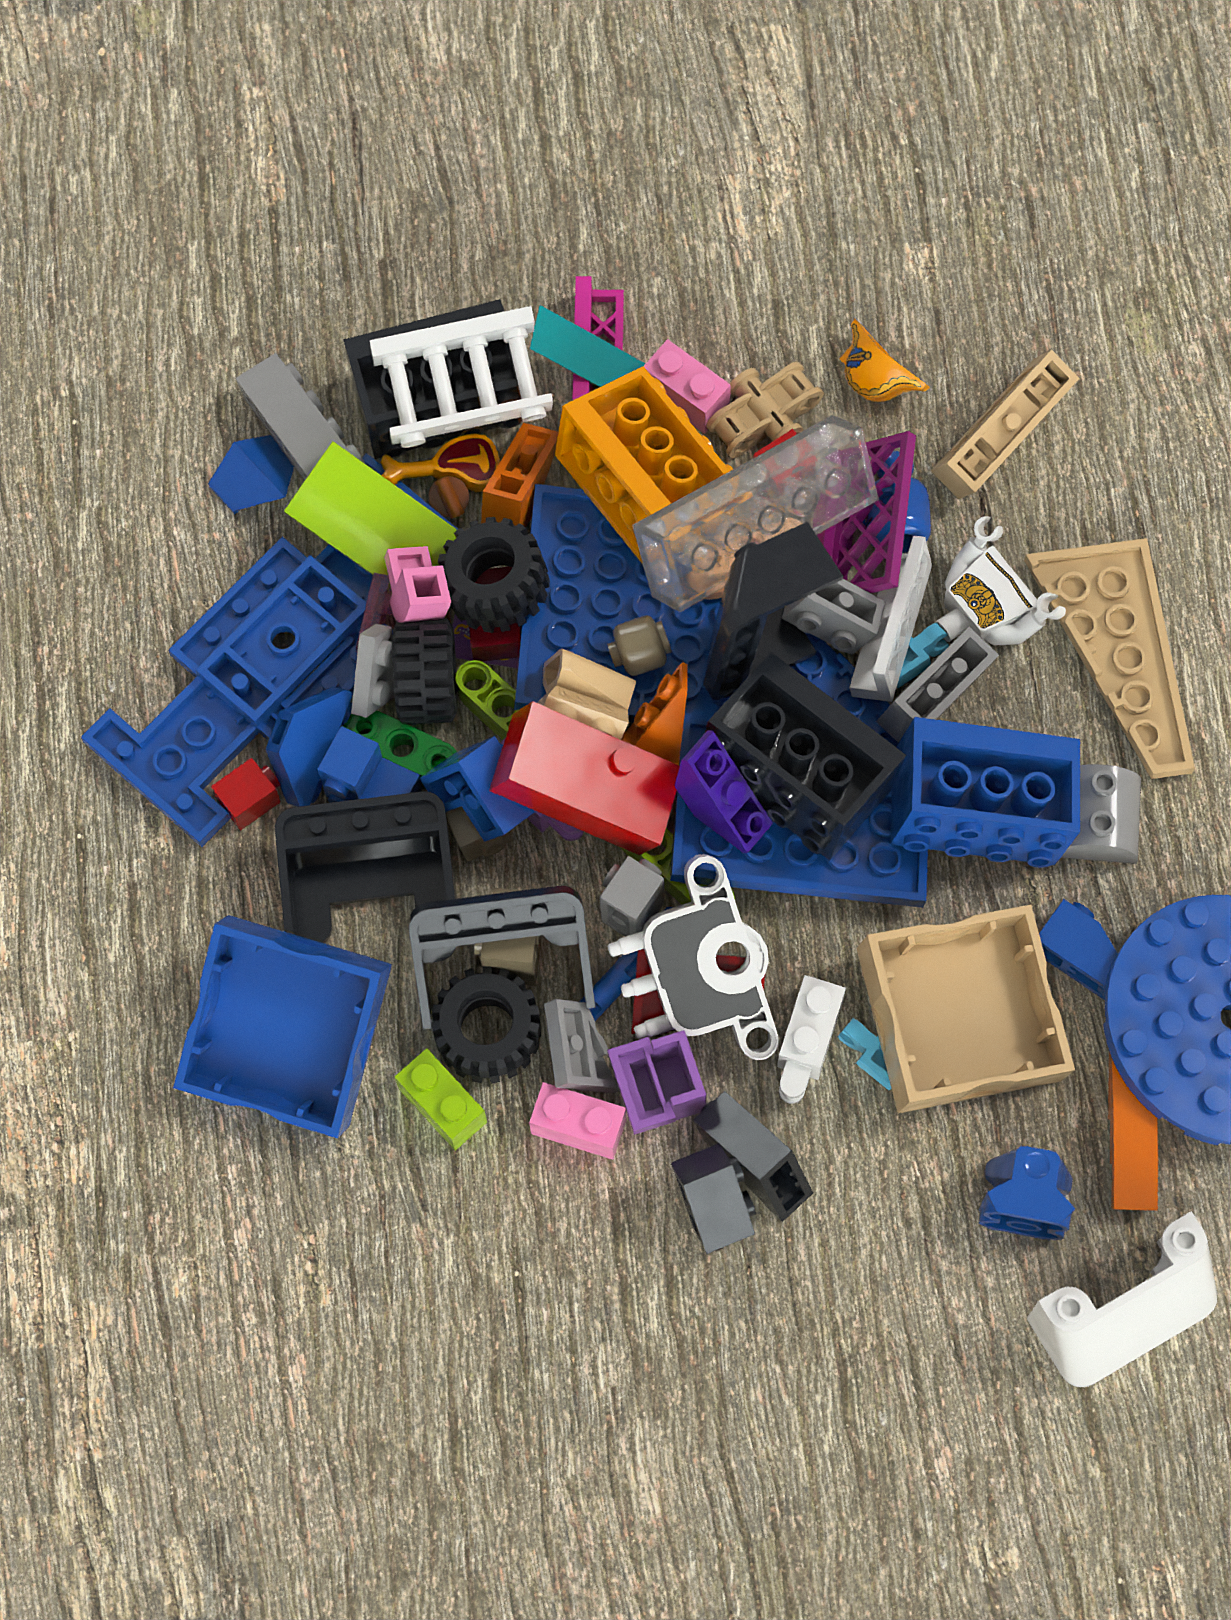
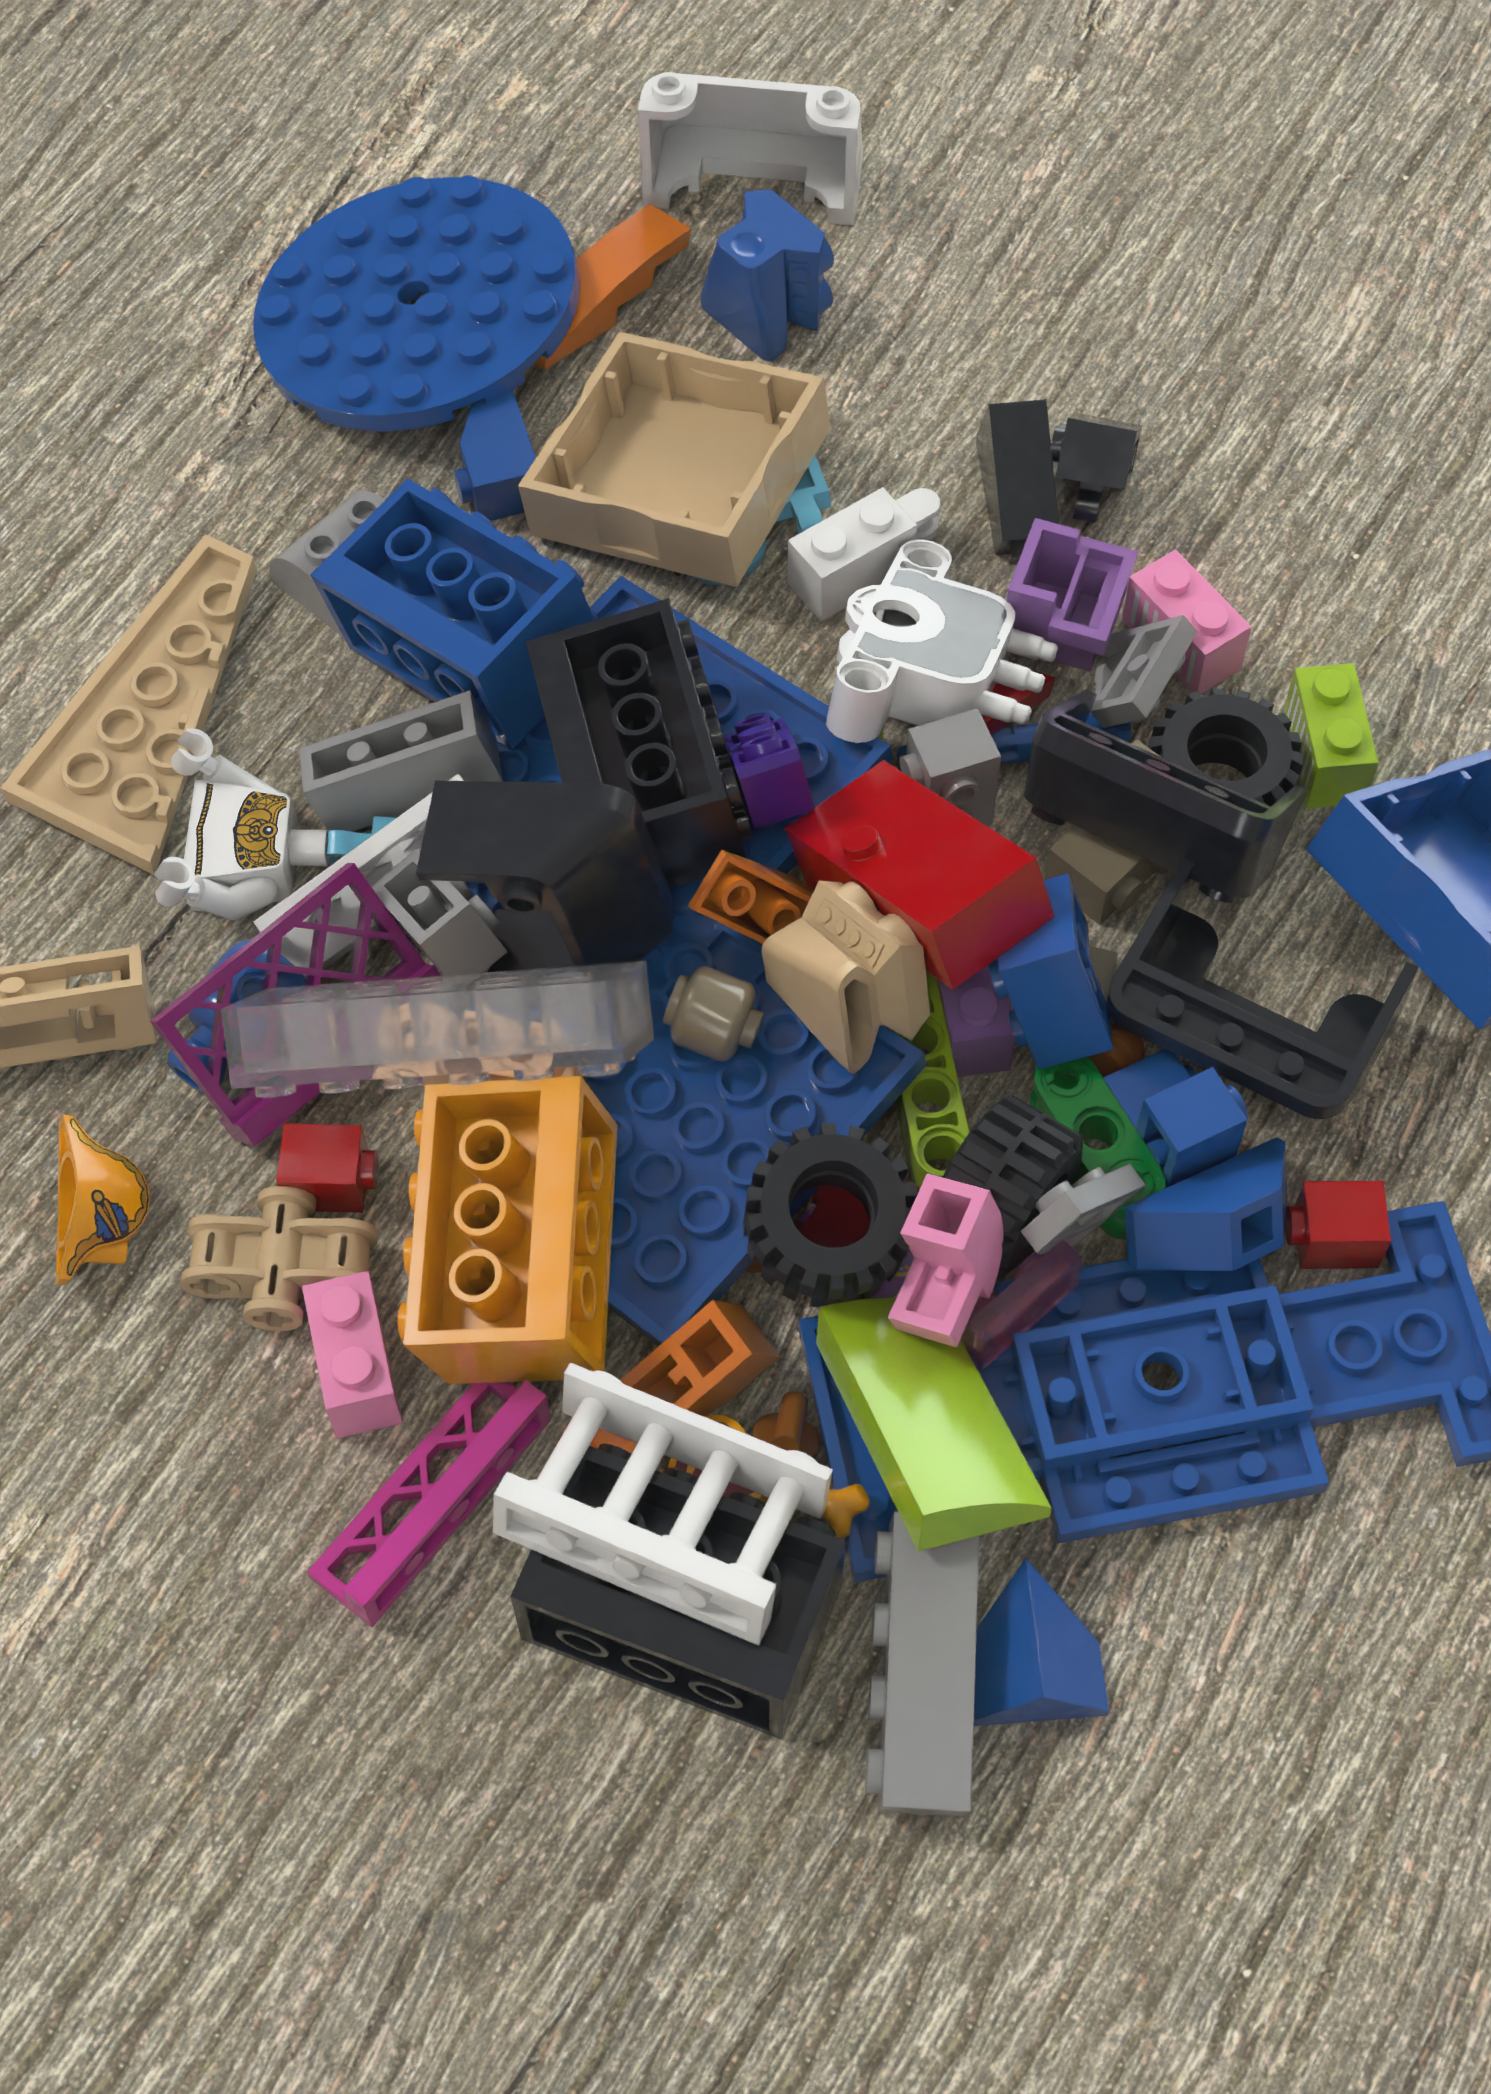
camera: 145 degrees left, 10 degrees down
(579, 349) = (444, 1469): teal sticker -> none

